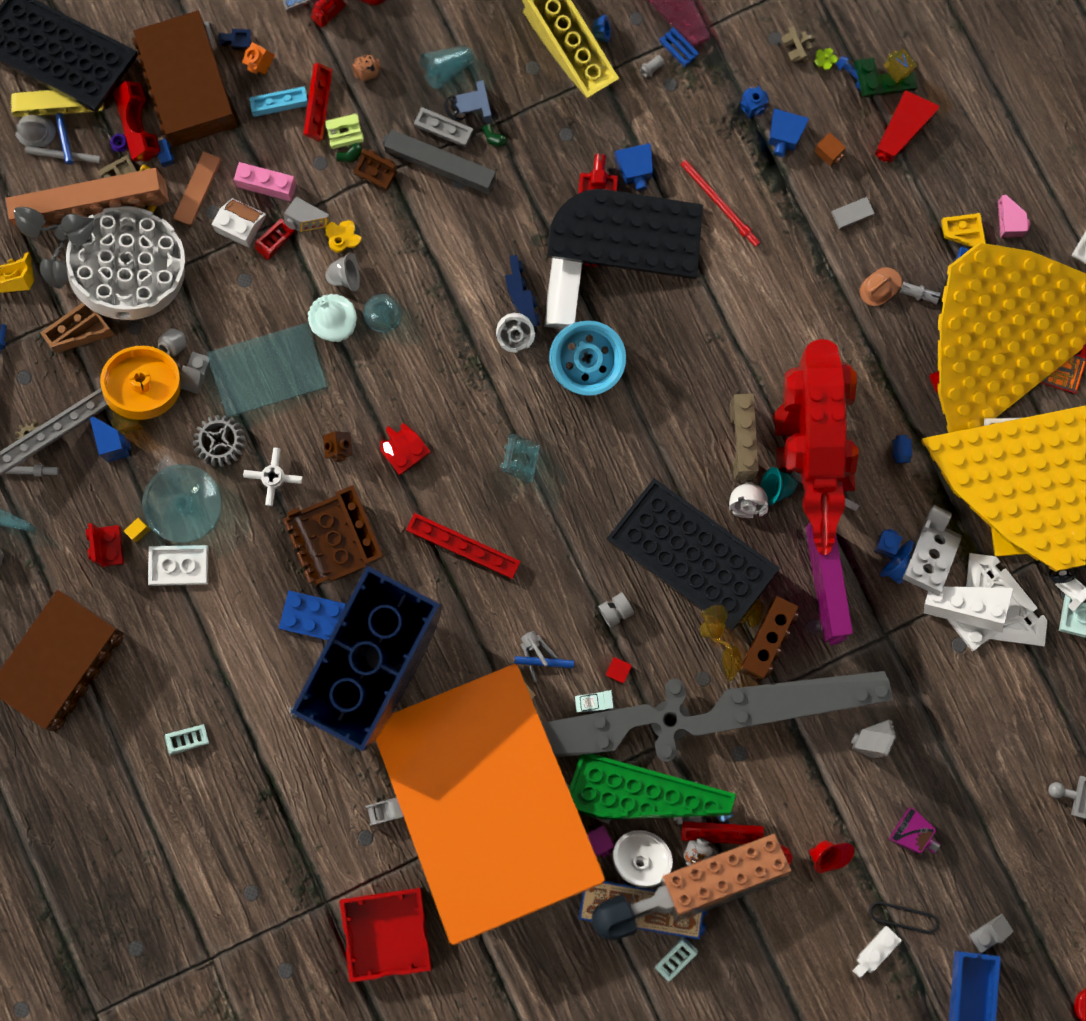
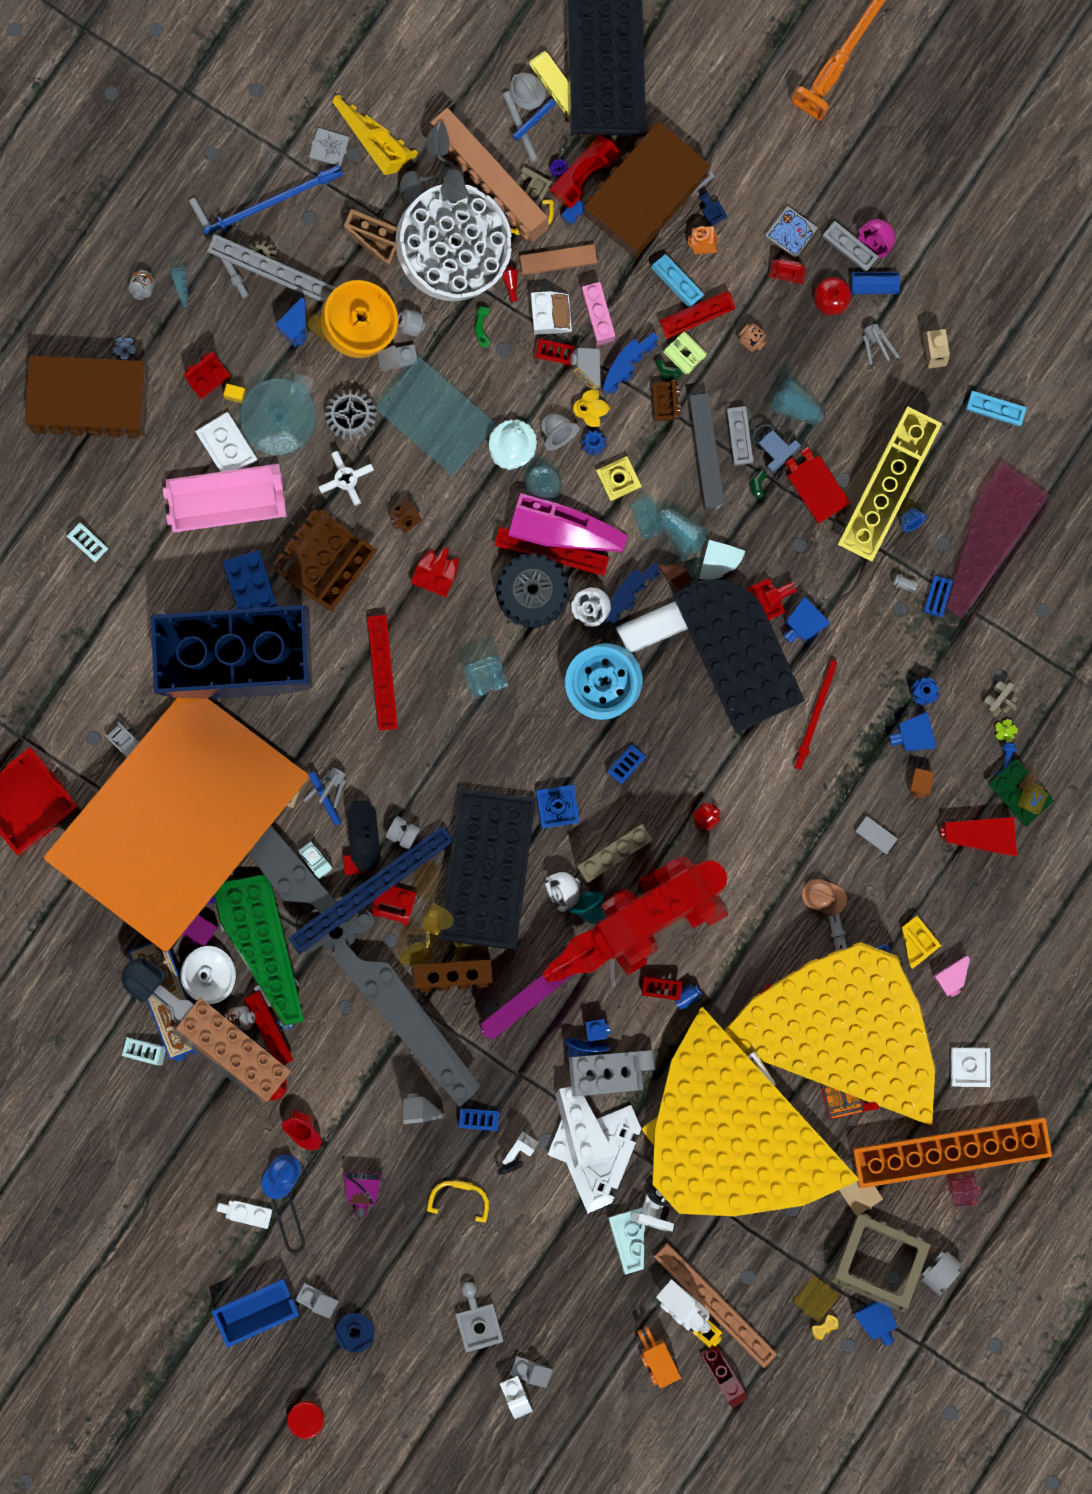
camera: 55 degrees right, 5 degrees up
(35, 604) = (124, 348): none -> sand blue plant
(189, 238) = (510, 278): none -> red cone
(224, 592) = (225, 498): none -> bright pink panel
(227, 291) = (482, 338): none -> green piece
(321, 183) = (622, 367): none -> blue slope
(373, 251) = (593, 442): none -> blue piece
(425, 255) = (613, 489): none -> light yellow piece
(430, 317) = (562, 526): none -> dark pink wedge
(445, 339) = (568, 557): none -> red plate
(466, 244) = (647, 517): none -> clear light blue slope
(470, 357) = (536, 608): none -> black wheel
(496, 220) = (682, 532): none -> clear light blue cone
(524, 90) = (816, 486): none -> red tile
(530, 247) = (675, 574): none -> copper tile
(539, 205) = (719, 560): none -> light aqua brick
(598, 646) = (363, 835): none -> black shield
(652, 668) = (370, 890): none -> dark blue plate
(668, 651) = (397, 898): none -> red plate
(674, 456) = (546, 798): none -> blue plate
(675, 398) = (616, 776): none -> blue slope
(755, 342) = (706, 816): none -> red head
(860, 900) = (280, 1176): none -> blue piece
(895, 453) = (647, 984): none -> red slope
(899, 706) = (463, 1111): none -> blue slope
(953, 665) = (525, 1144): none -> white piece
(958, 742) = (461, 1185): none -> yellow piece
(1030, 922) = (344, 1329): none -> dark blue plate

